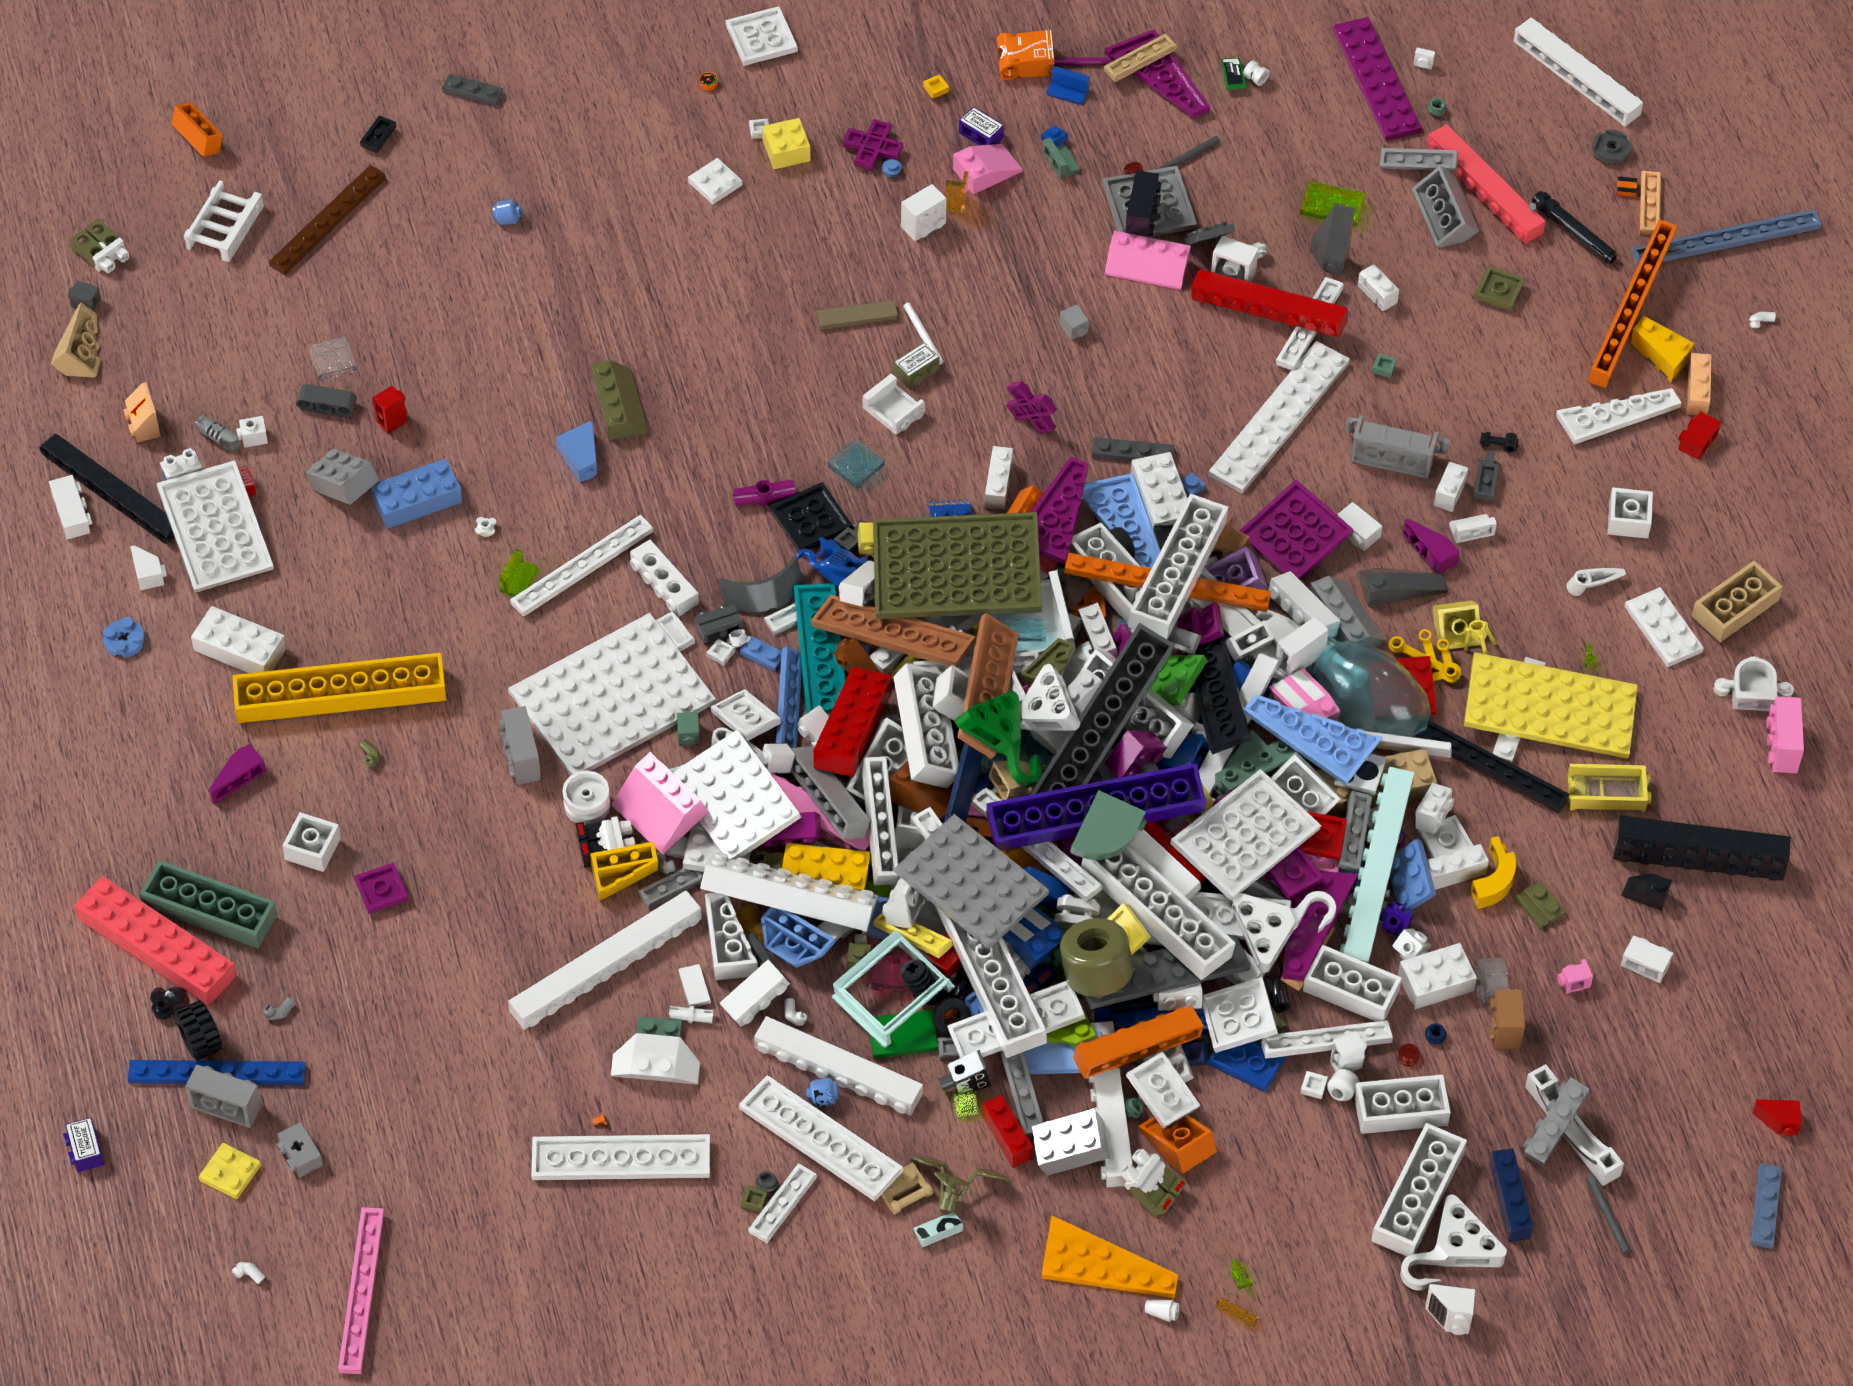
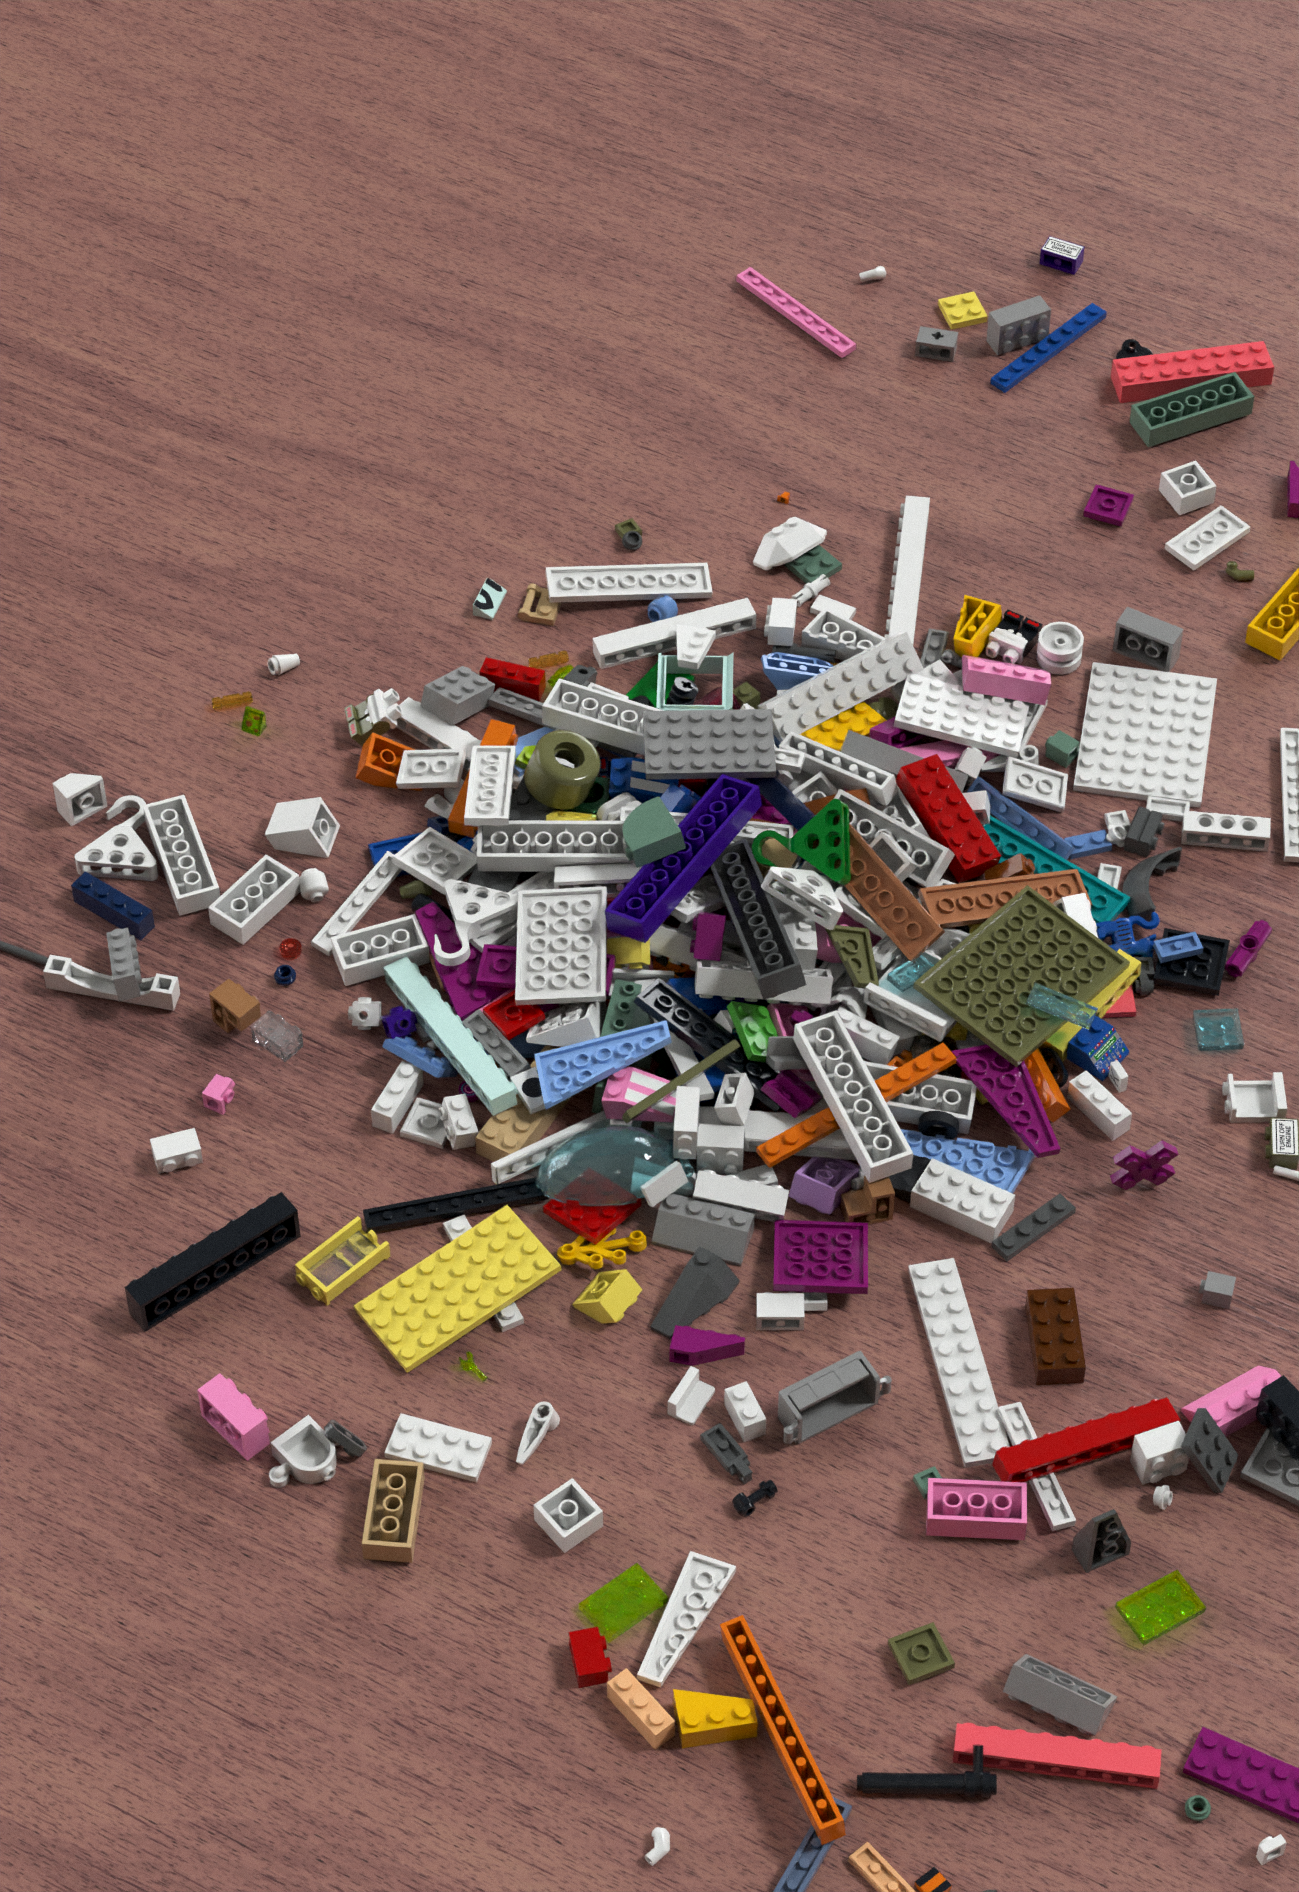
camera: 135 degrees right, 5 degrees down
(198, 1030) = (1085, 338): black tyre -> none
(280, 1012) = (1063, 400): light grey arm -> none
(352, 798) = (1207, 537): none -> white plate
(620, 1157) = (740, 485): white plate -> none
(782, 1203) = (607, 538): white tile -> none
(793, 1016) = (746, 642): white arm -> none
(814, 522) = (1178, 947): none -> medium blue plate
(853, 1017) = (693, 645): none -> white wing
(949, 1195) = (496, 590): olive plant -> none
(955, 1132) = (548, 660): none -> clear yellow axle
(960, 486) = (1118, 1076): none -> white tile
(964, 516) = (1062, 1006): none -> clear light blue plate
(1092, 1261) = (358, 661): light orange wing -> none
(1162, 991) = (490, 786): none -> white plate
(1193, 484) = (953, 1238): medium blue plate -> none
(1208, 376) = (1055, 1336): none -> reddish brown brick
(1279, 667) = (681, 1080): none -> olive tile
(1305, 1139) = (303, 827): none -> white slope
(1314, 1085) = (335, 871): white plate -> none
(1344, 636) = (664, 1184): none -> white tile
(1348, 1052) = (328, 895): white brick -> none
(1378, 287) = (1020, 1550): white brick -> none
(1382, 321) = (976, 1509): none -> bright pink slope
(1418, 159) = (1139, 1716): light grey plate -> none
(1437, 976) = (324, 1008): white brick -> none
(1478, 631) = (573, 1280): light yellow plant -> none
(1495, 887) = (359, 1133): yellow arch -> none
(1540, 905) = (304, 1132): olive plate -> none
(1643, 452) = (623, 1602): none -> clear neon green plate
(1648, 890) = (226, 1204): black slope -> none
(1724, 667) = (351, 1443): none -> dark grey plate

